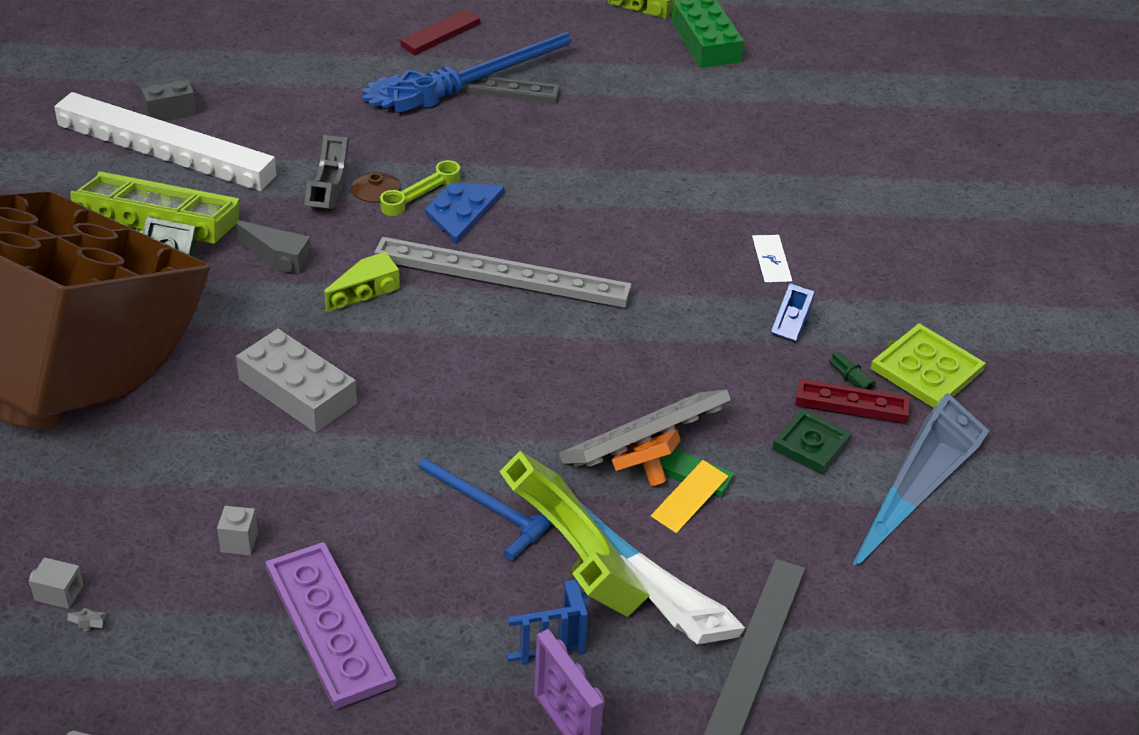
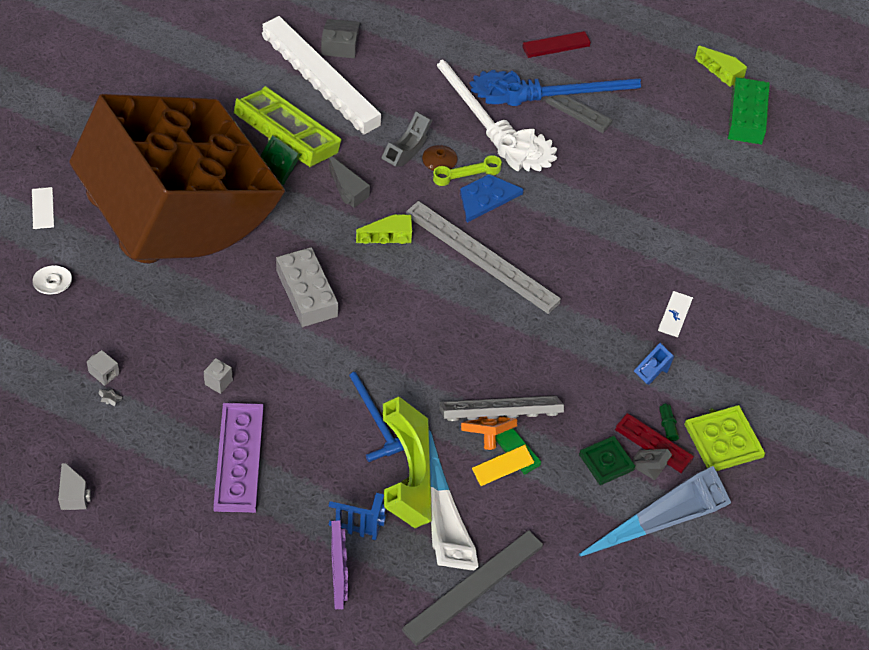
camera: 25 degrees right, 10 degrees up
(466, 144) = (518, 147): none -> white piece
(866, 419) = (651, 461): none -> dark grey slope

